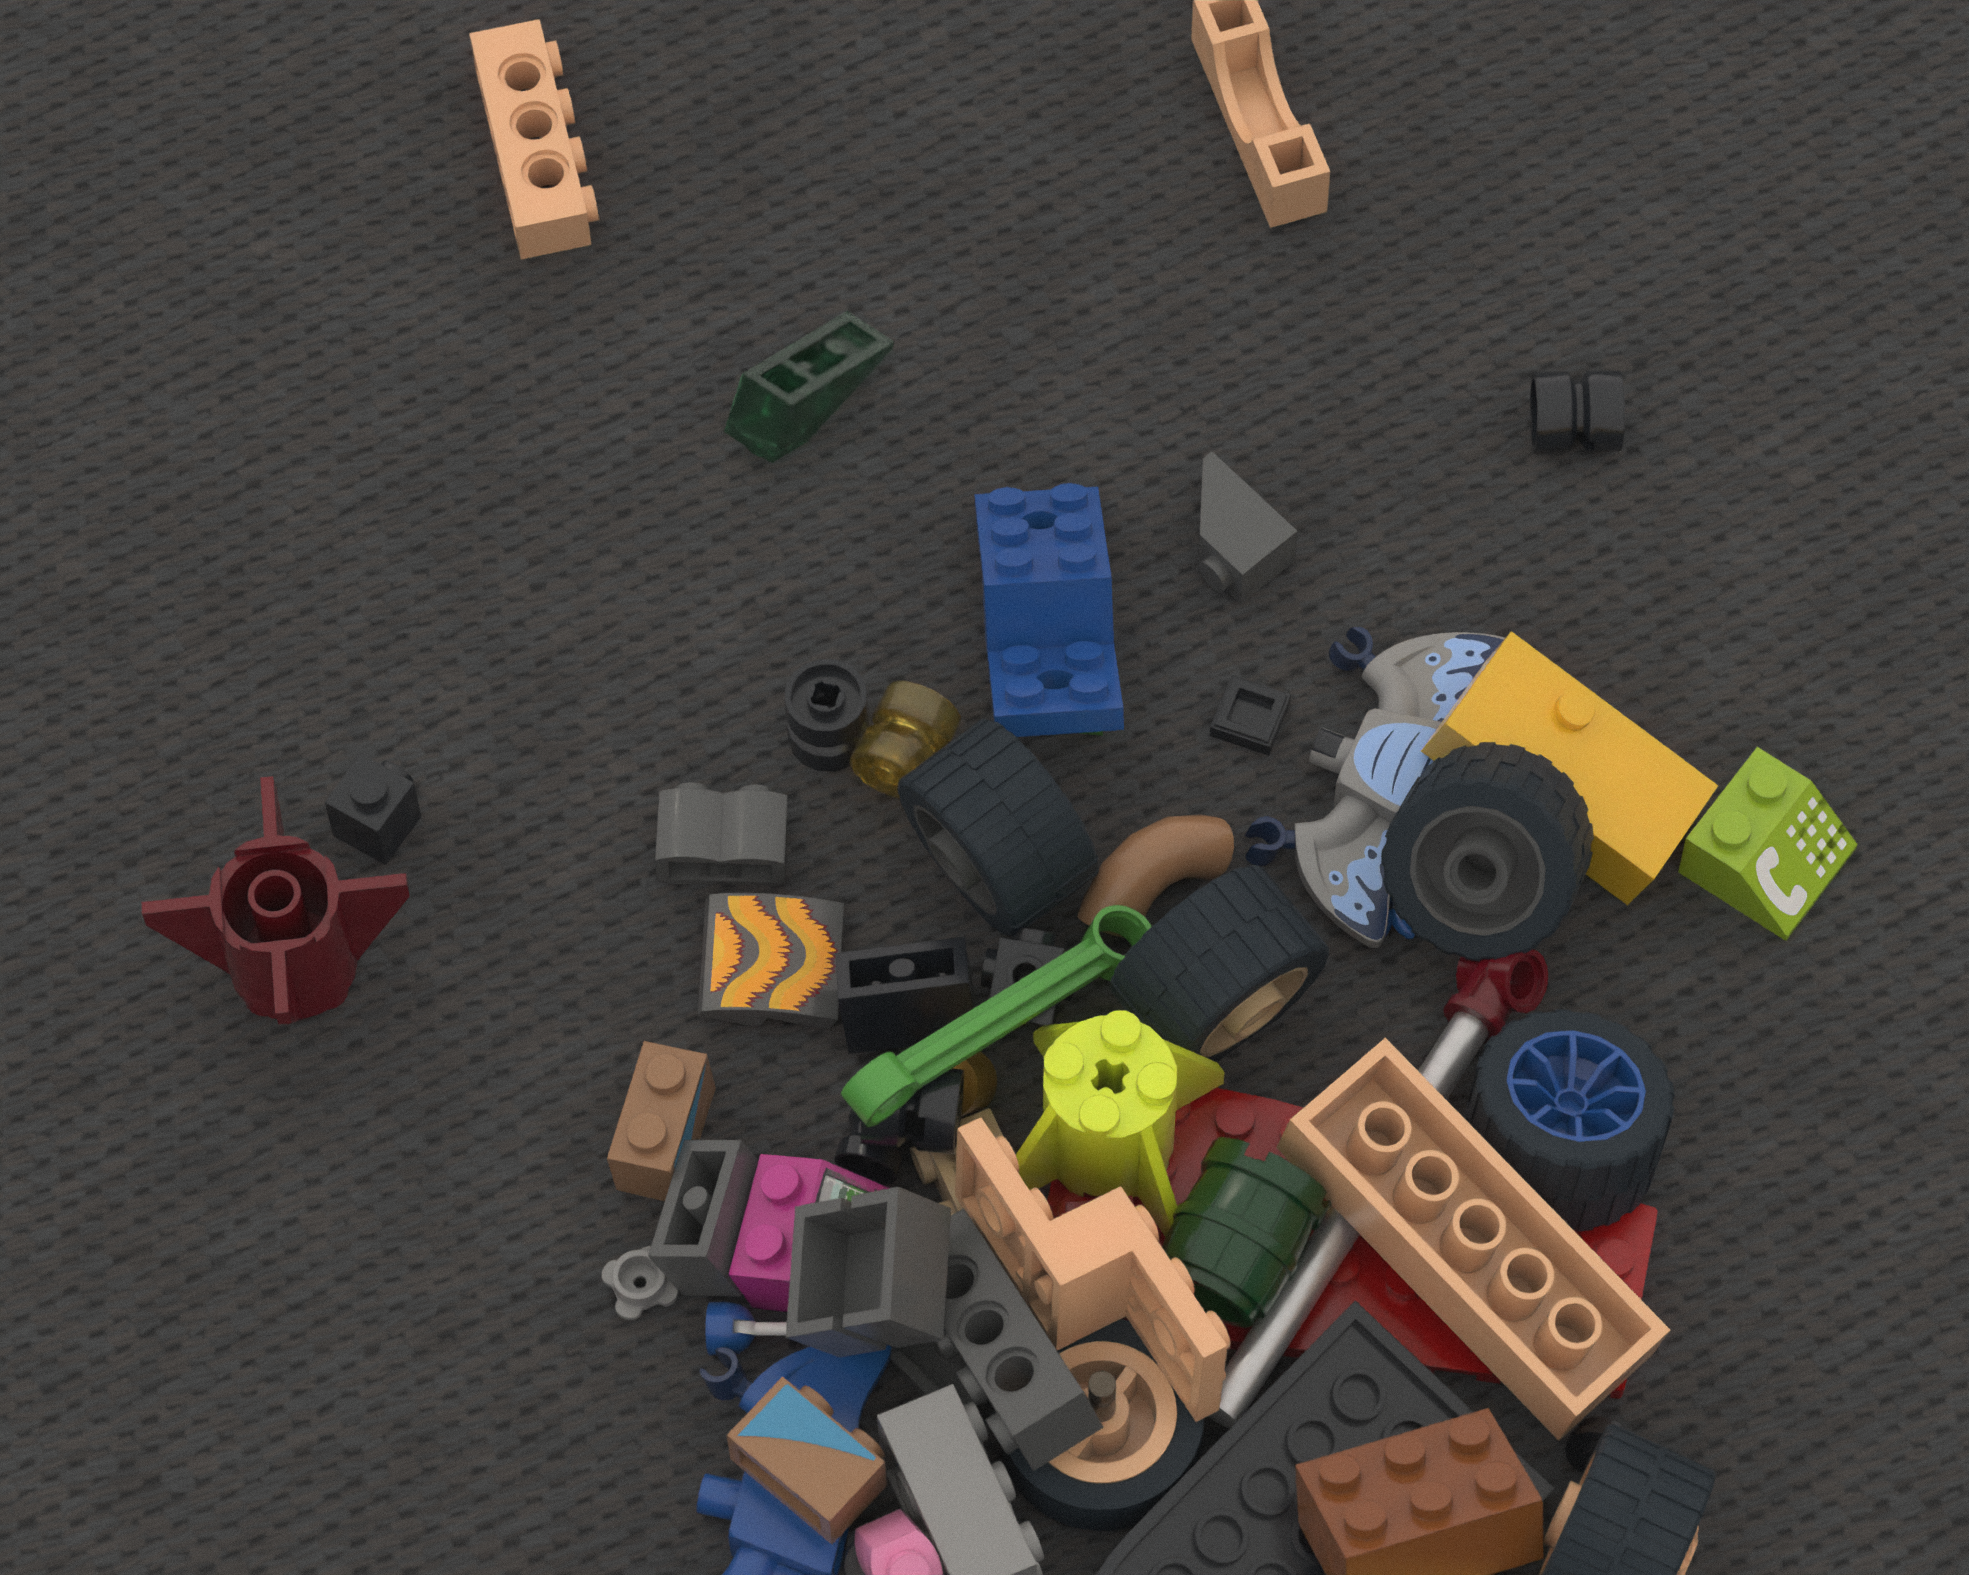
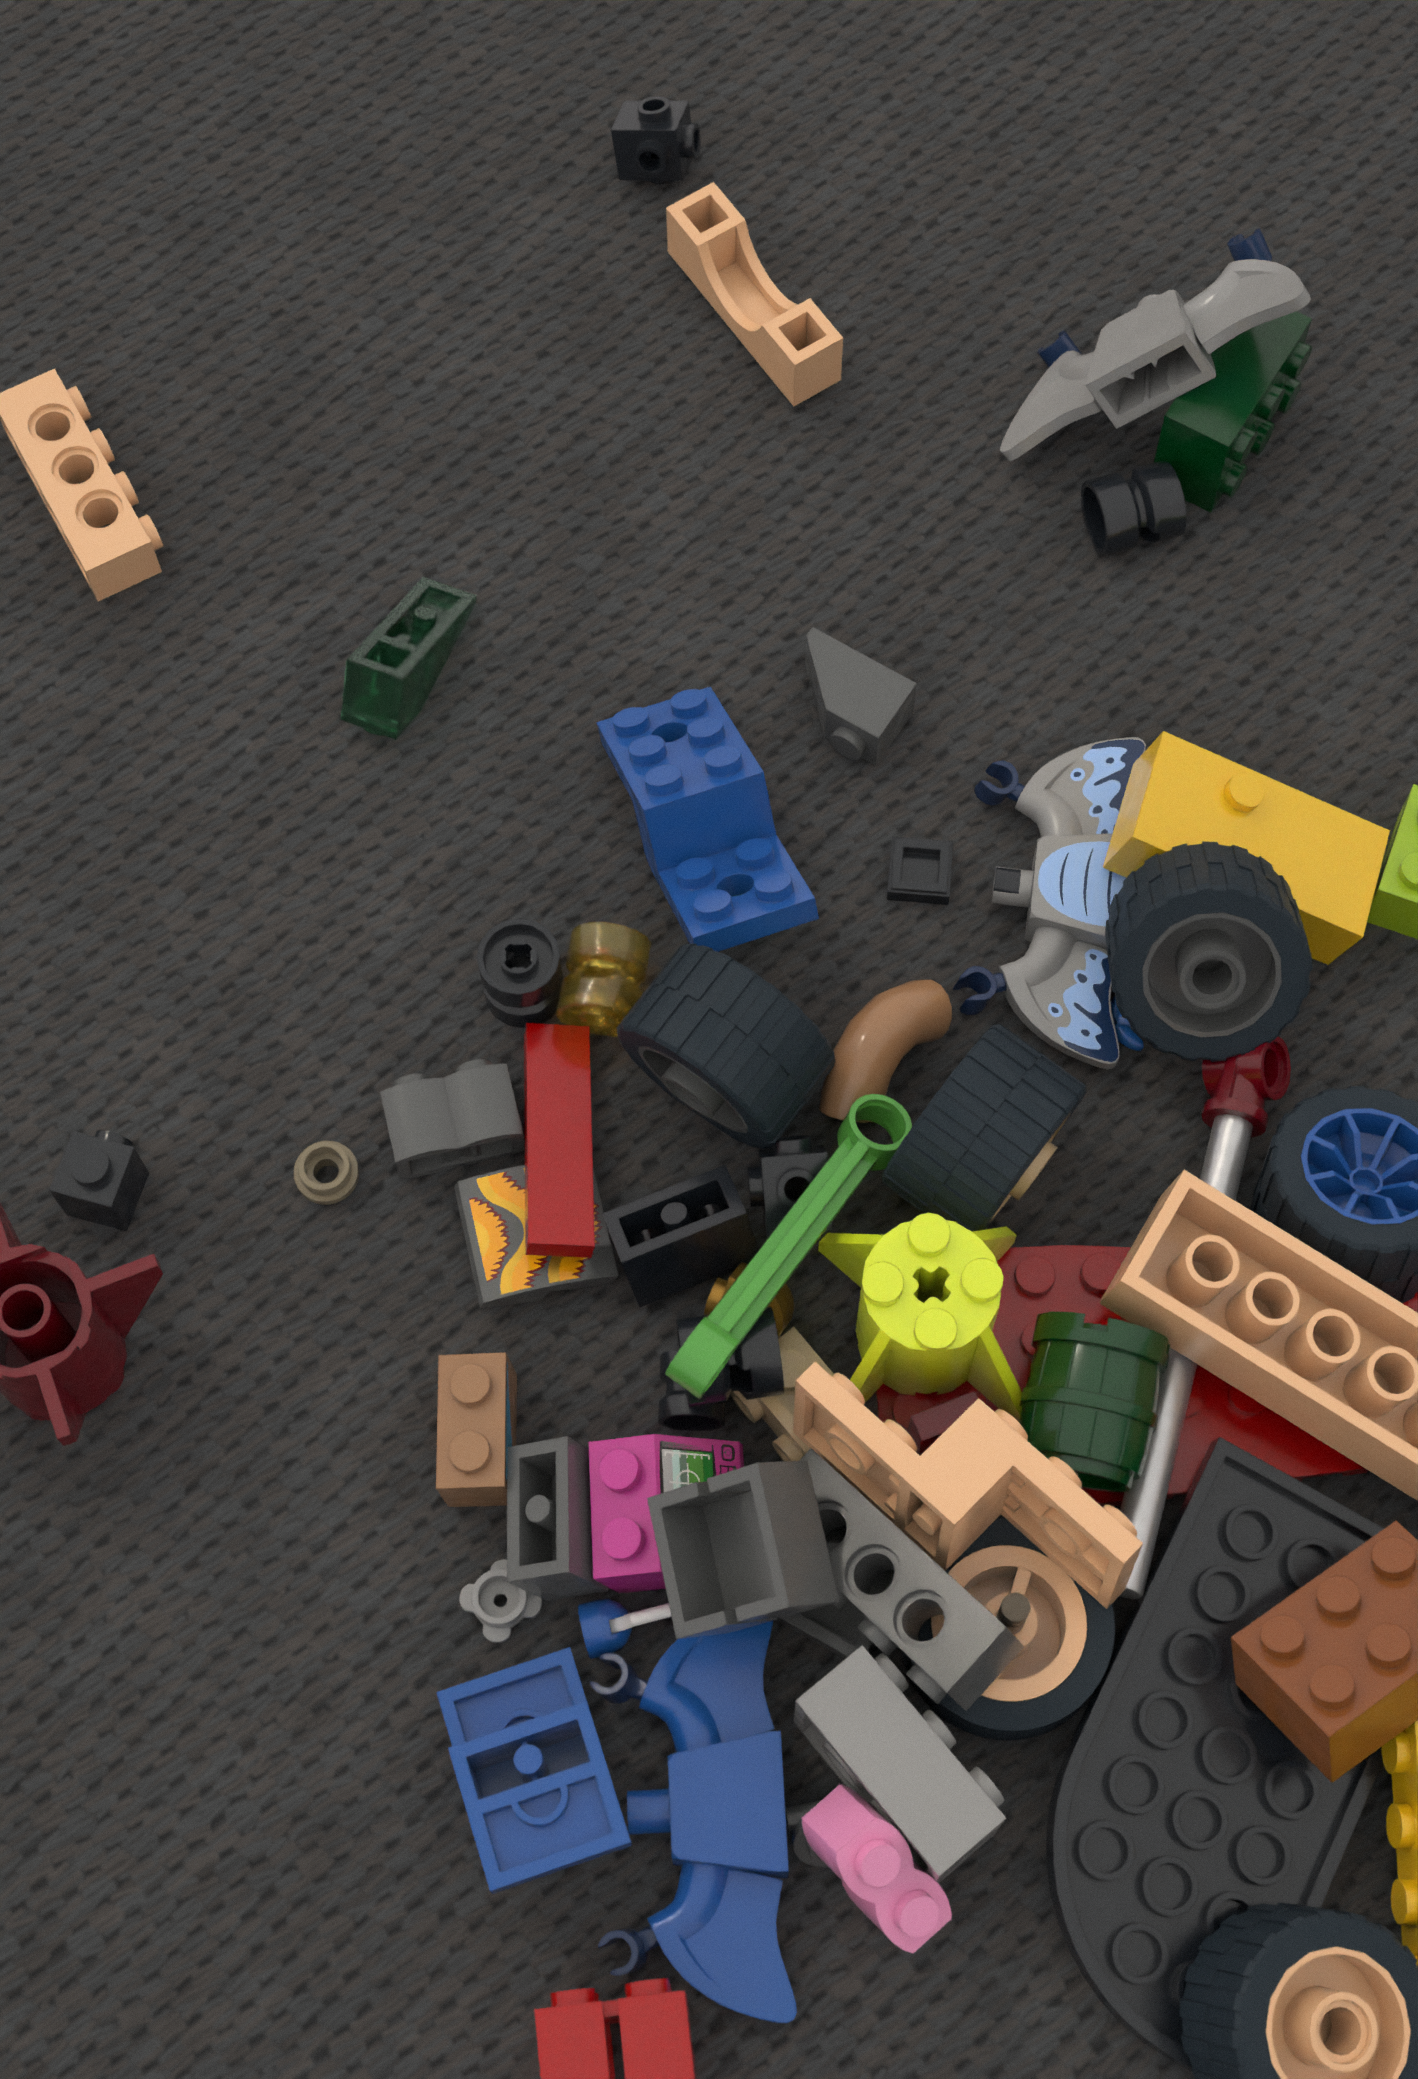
camera: 15 degrees left, 5 degrees up
(588, 839) = (320, 1155): none -> dark tan plate
(623, 1425) = (532, 1771): none -> blue bracket
(809, 1458) = (734, 1758): medium nougat brick -> none
(816, 878) = (558, 1141): none -> red tile
(1634, 255) = (1155, 348): none -> light grey torso
(1709, 326) = (1229, 416): none -> dark green brick

